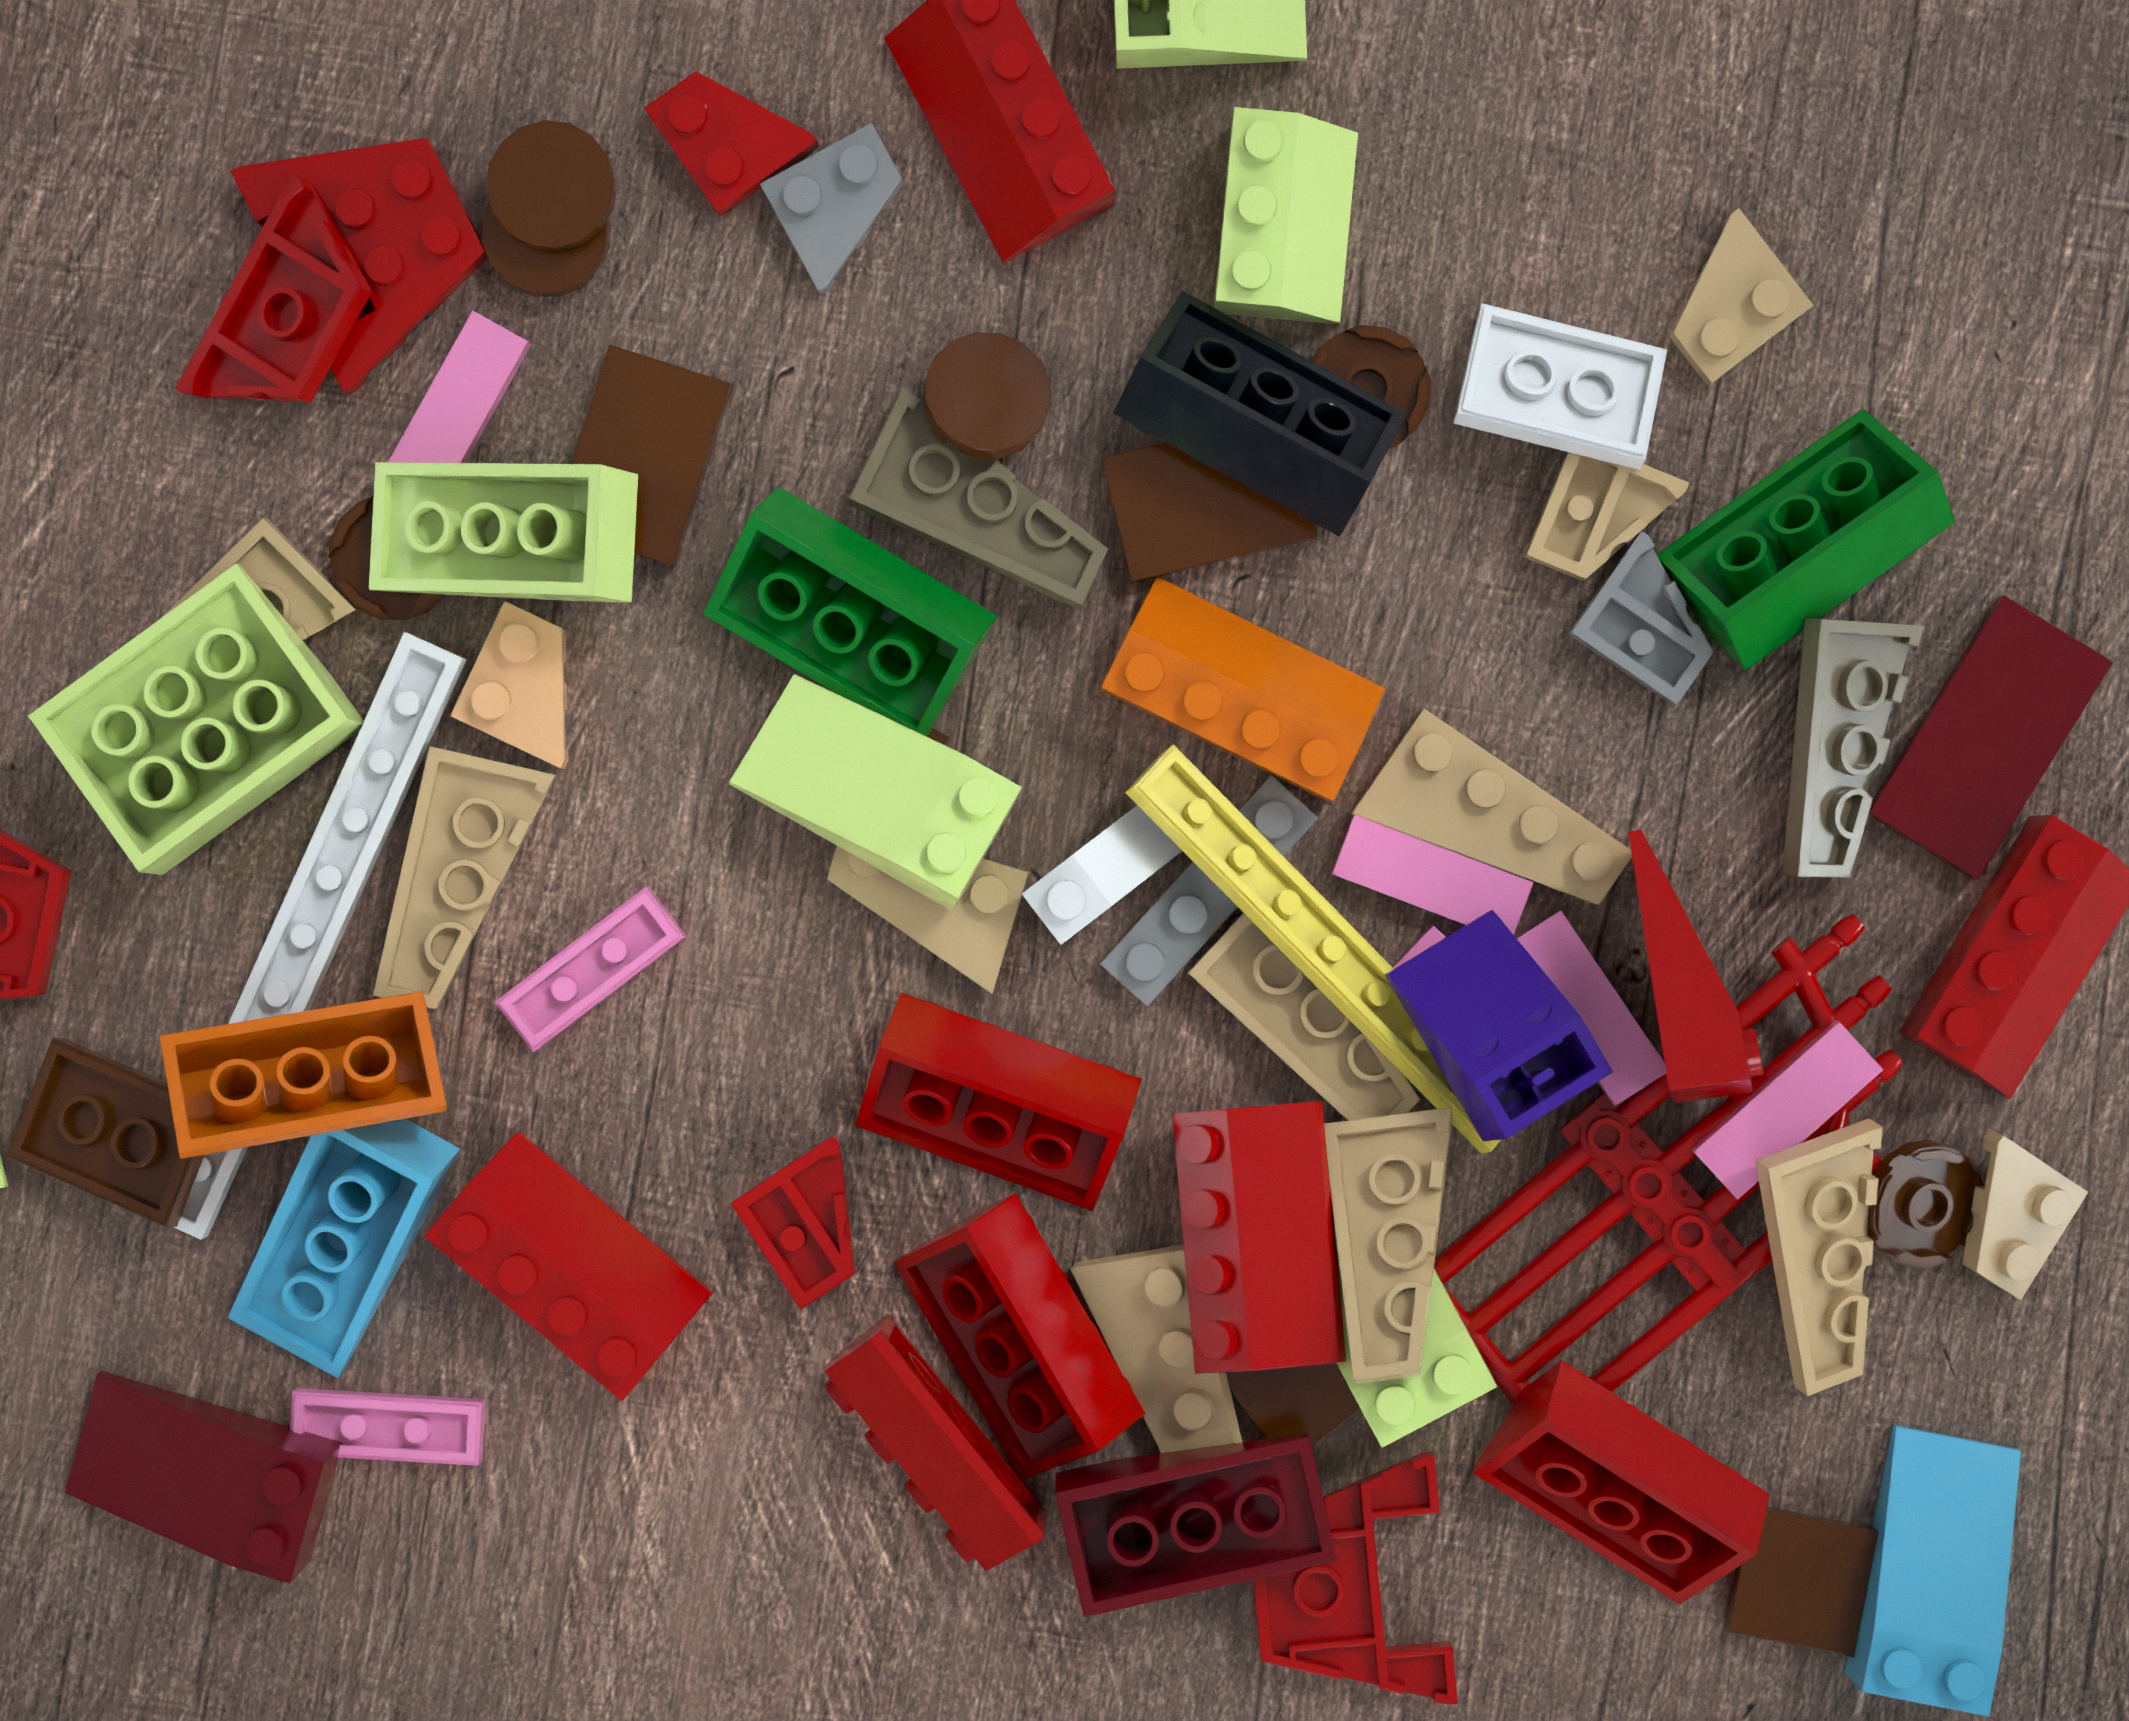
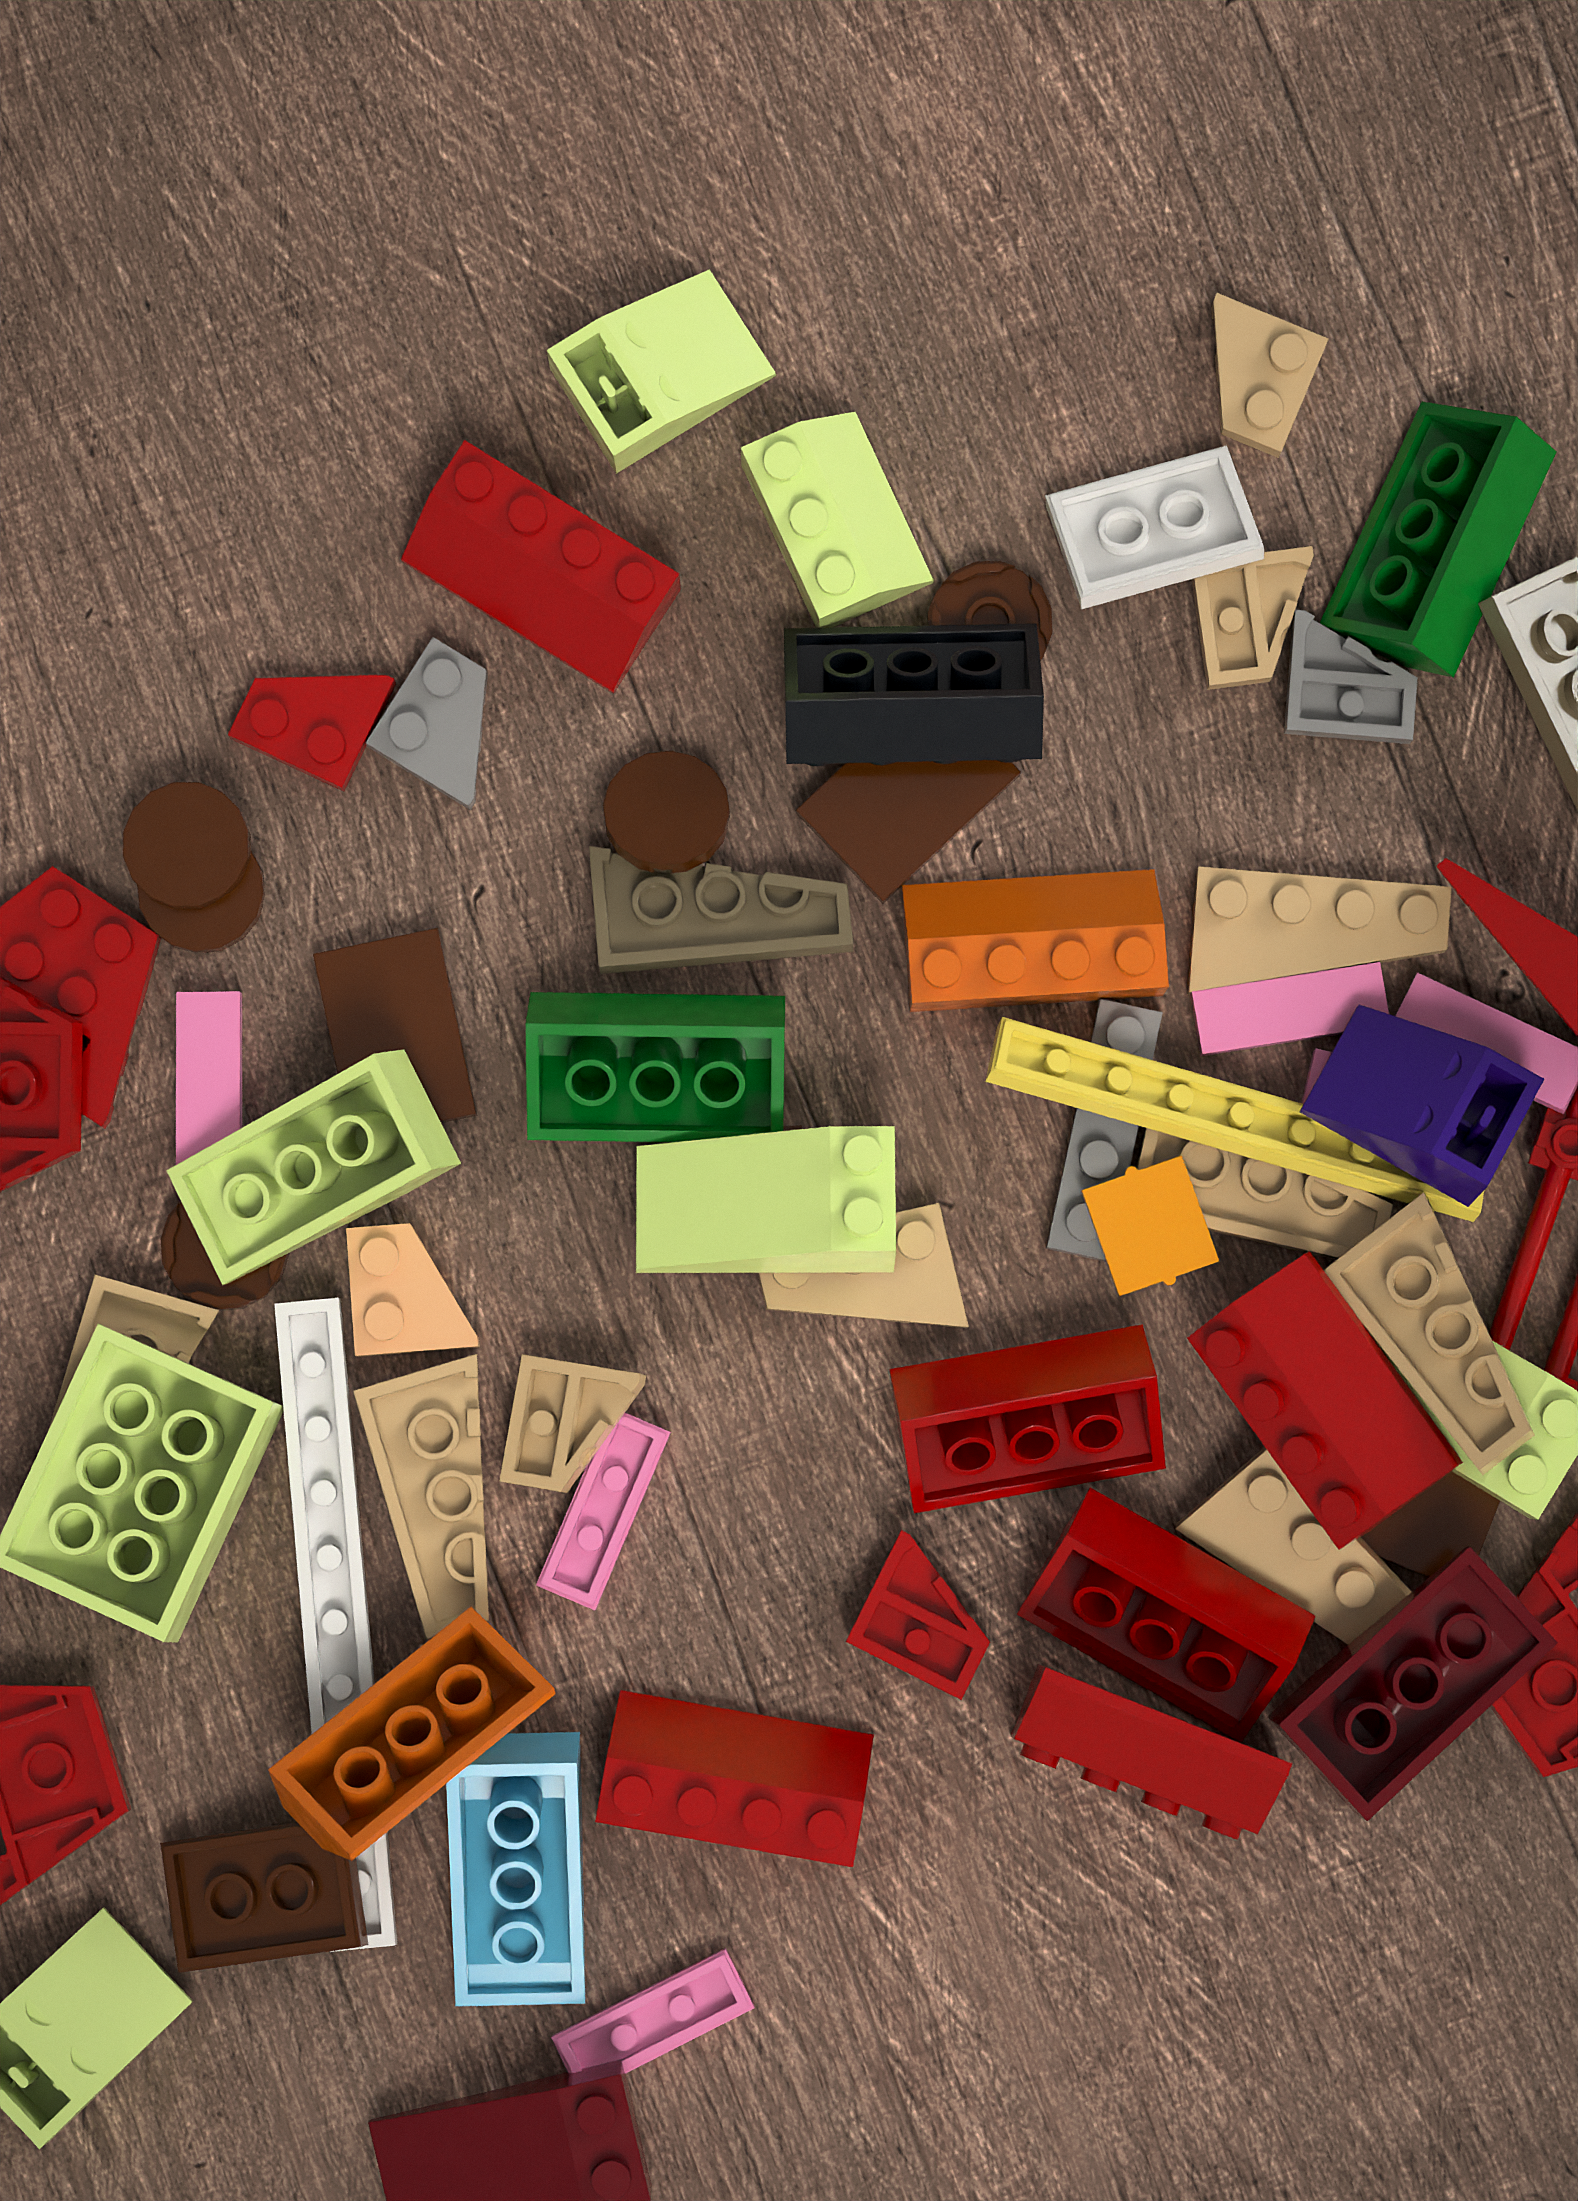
camera: 30 degrees left, 5 degrees down
(596, 873) = (562, 1419): none -> tan wing
(1100, 874) = (1003, 1166): white slope -> none
(1198, 998) = (1150, 1226): none -> light orange piece

